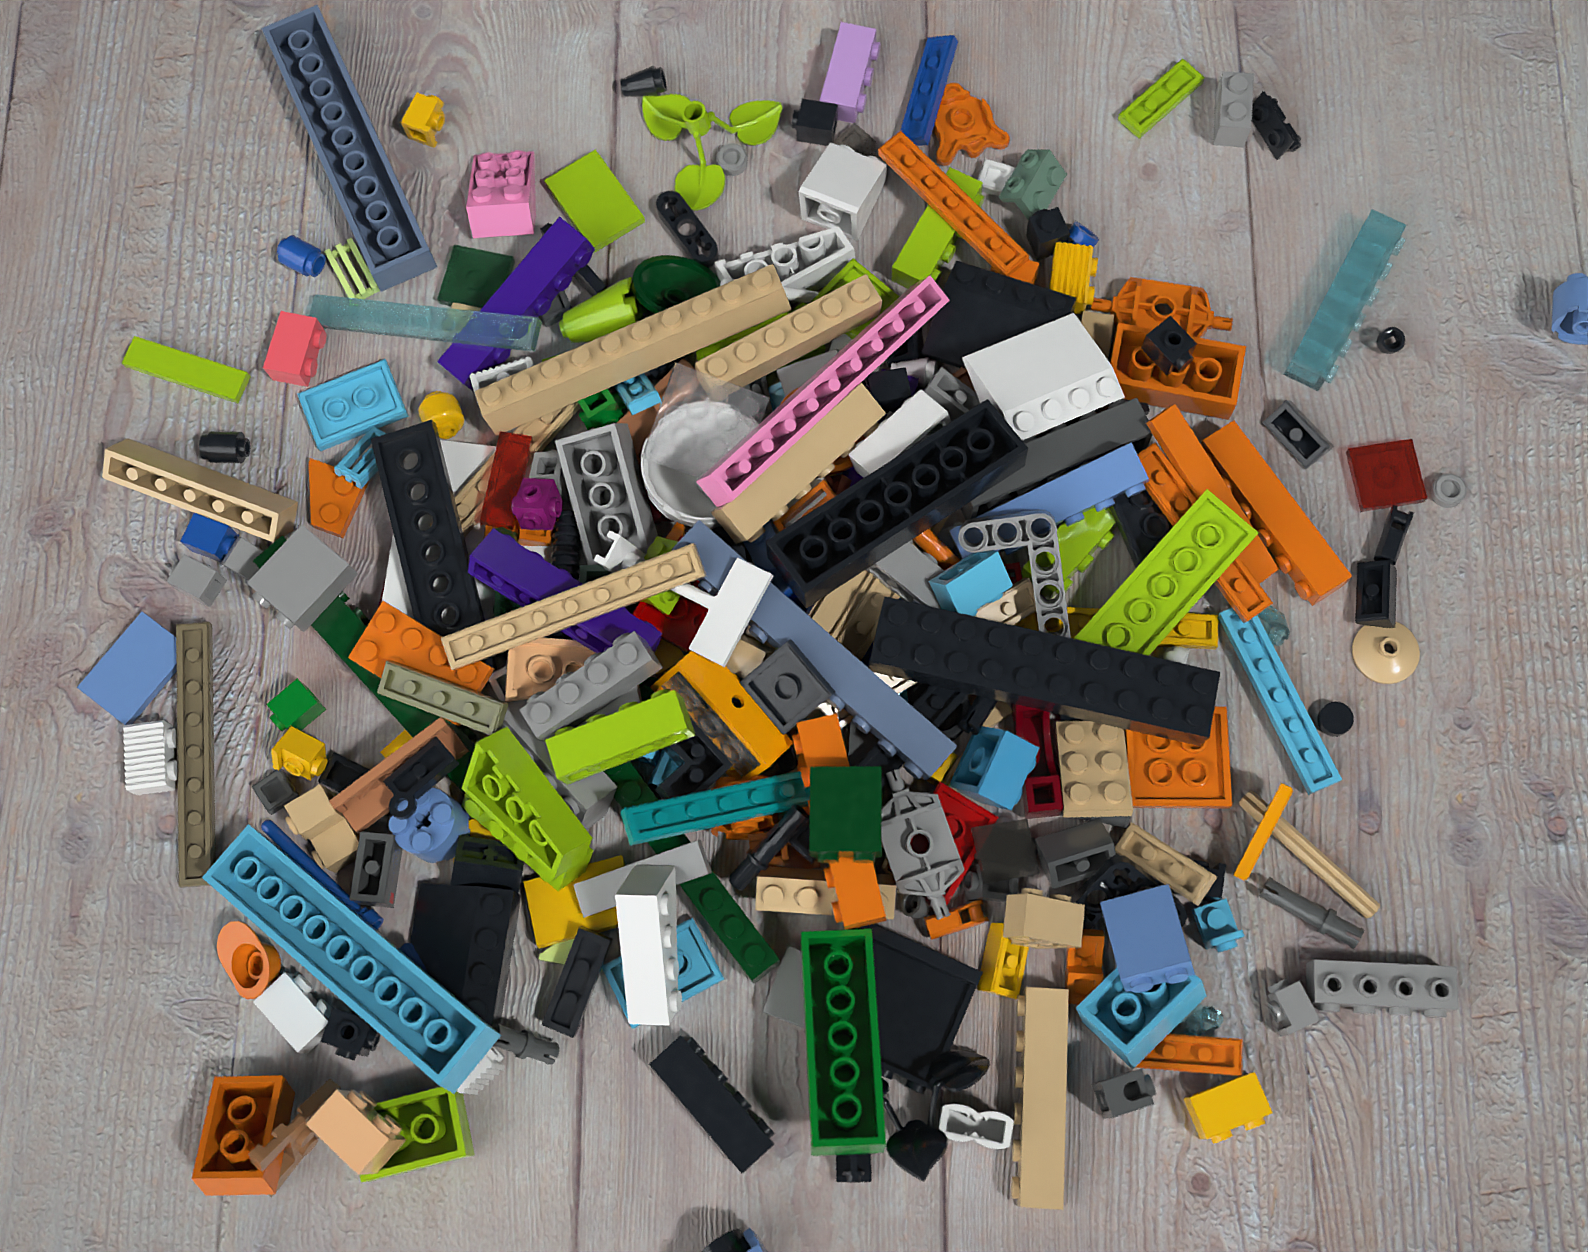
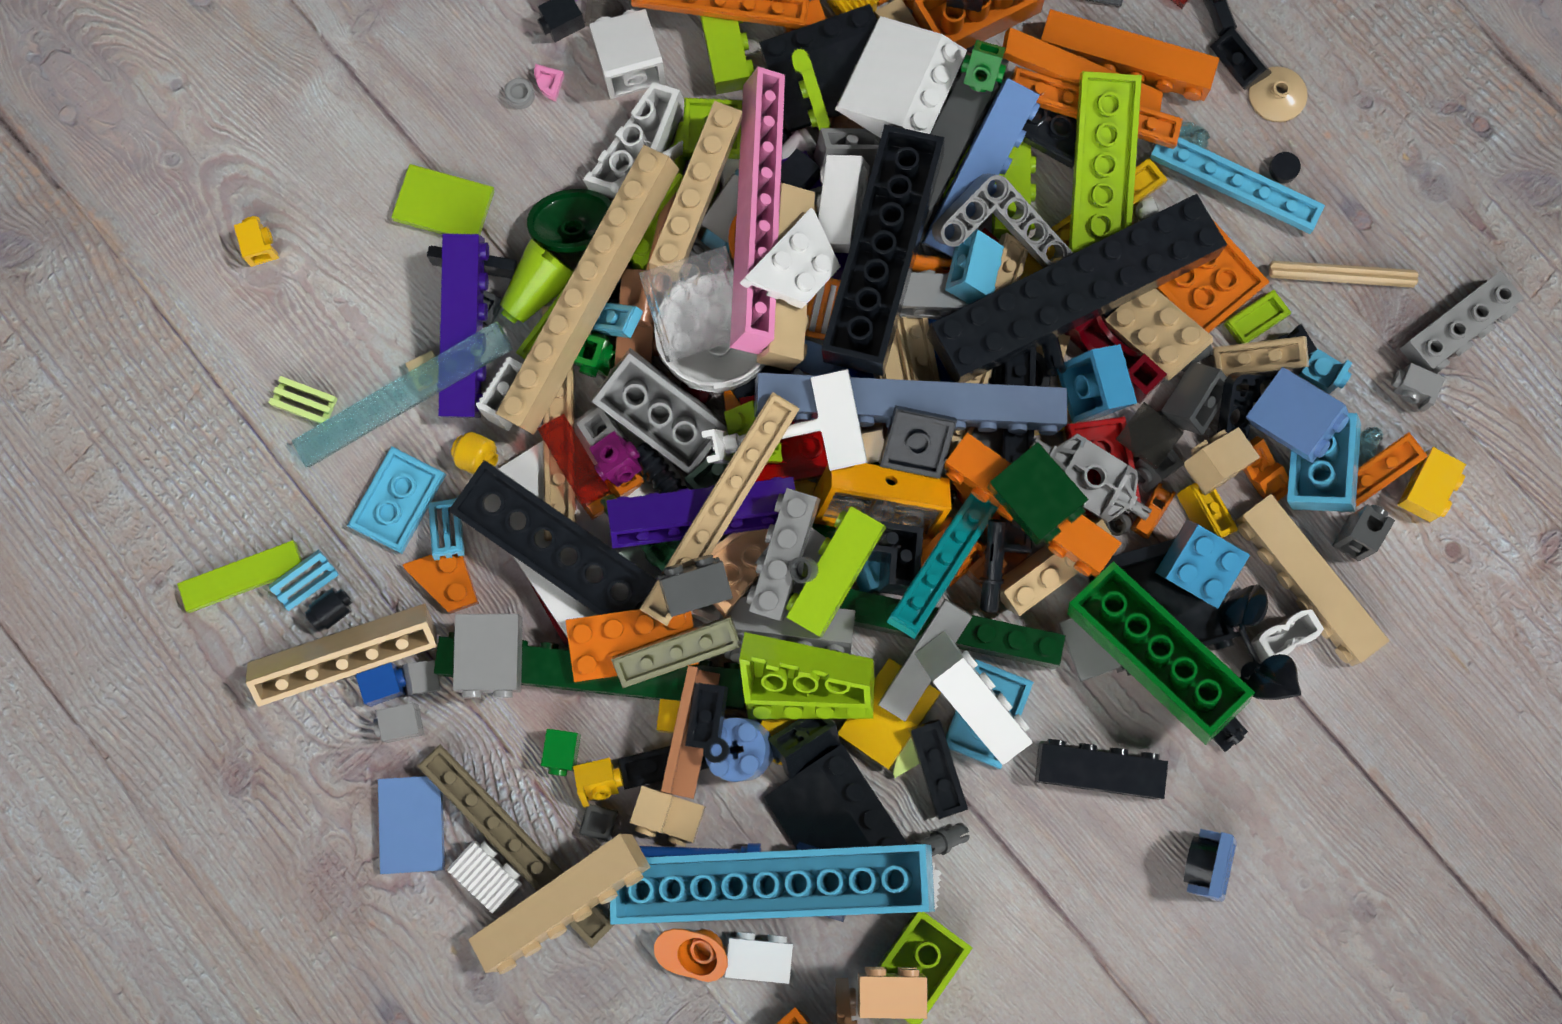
camera: 45 degrees left, 5 degrees up
(179, 826) = (560, 903): none -> tan brick
(201, 409) = (308, 590): none -> medium azure tile
(294, 349) = (315, 493): coral brick -> none
(301, 256) = (254, 420): blue brick -> none
(340, 1033) = (807, 949): black brick -> none
(349, 149) = (216, 307): sand blue brick -> none
(376, 870) = (728, 813): dark grey brick -> none
(473, 276) = (404, 332): clear green tile -> none
(495, 652) = (694, 585): none -> dark grey brick
(502, 194) = (369, 252): bright pink slope -> none
(589, 710) = (803, 569): none -> dark grey hinge
(645, 83) = (402, 84): black cone -> none
(671, 113) = (442, 92): lime plant -> none
(685, 216) = (510, 172): black beam -> none
(764, 167) = (548, 81): none -> bright pink tile
(810, 456) = (796, 264): none -> white wing
(950, 998) = (1202, 563): none -> dark azure brick
(963, 330) = (810, 88): none -> lime hinge
(1120, 417) = (984, 66): none -> green brick
(1196, 830) = (1257, 318): none -> lime tile
(1263, 831) = (1306, 282): light orange tile -> none
(1312, 913) = (1390, 310): dark grey pin -> none

